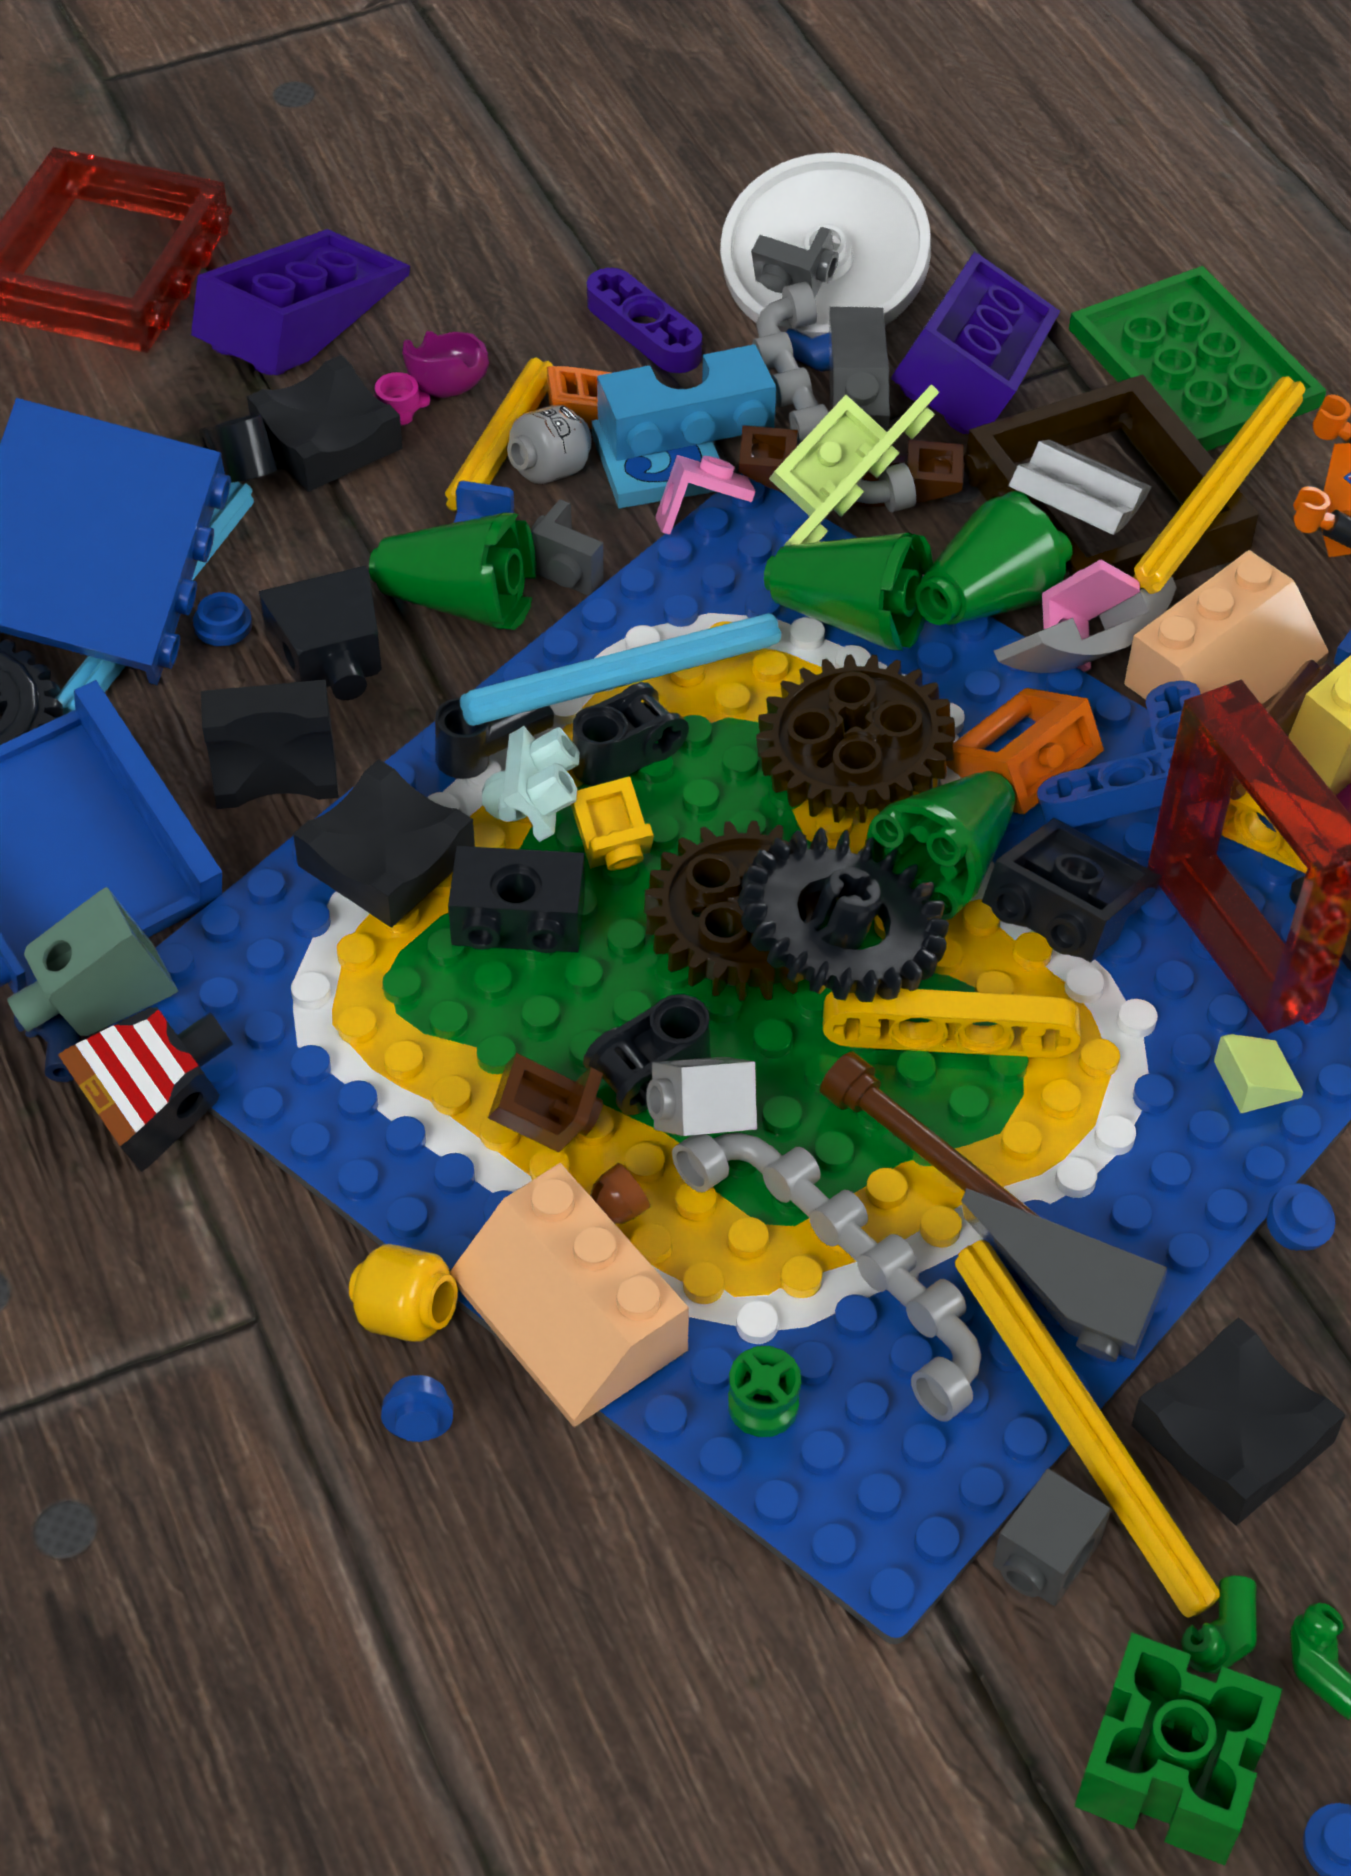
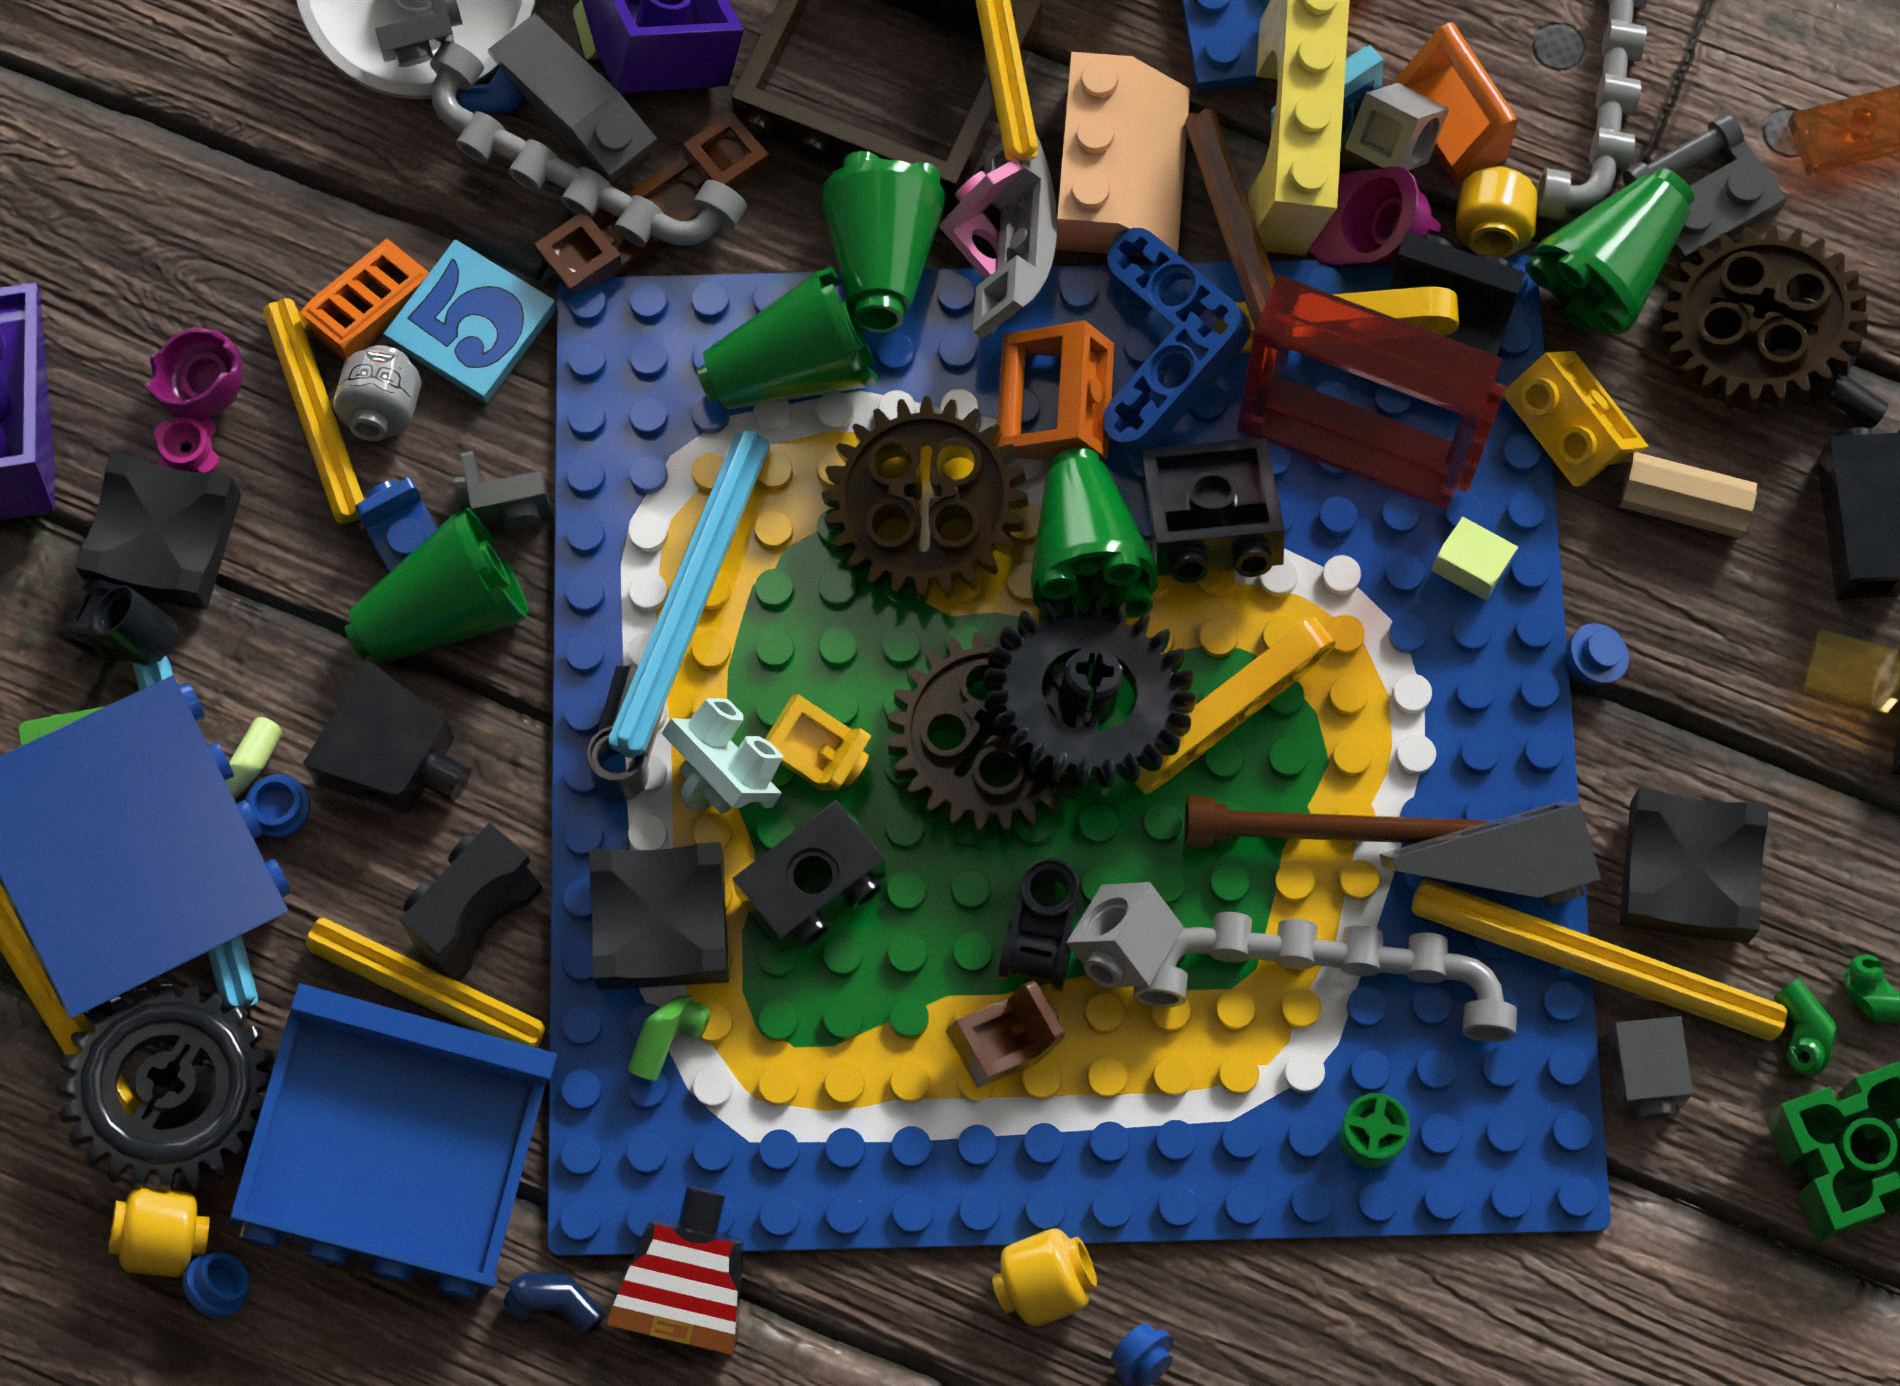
camera: 40 degrees left, 20 degrees up
(92, 969) = (570, 1210): sand green torso -> none
(192, 784) = (422, 984): none -> yellow axle
(233, 579) = (252, 754): none -> yellowish green arm
(312, 915) = (661, 1029): none -> bright green arm
(571, 1295) = (1175, 1179): light nougat slope -> none
(619, 1195) = (1127, 1066): dark orange hinge -> none
(622, 734) = (742, 638): black piece -> none
(650, 418) = (444, 303): dark azure arch -> none
(668, 342) = (268, 189): dark purple beam -> none
(709, 474) = (554, 331): bright pink bracket -> none
(837, 455) = (670, 229): yellowish green bracket -> none
(1080, 486) = (891, 97): light grey slope -> none

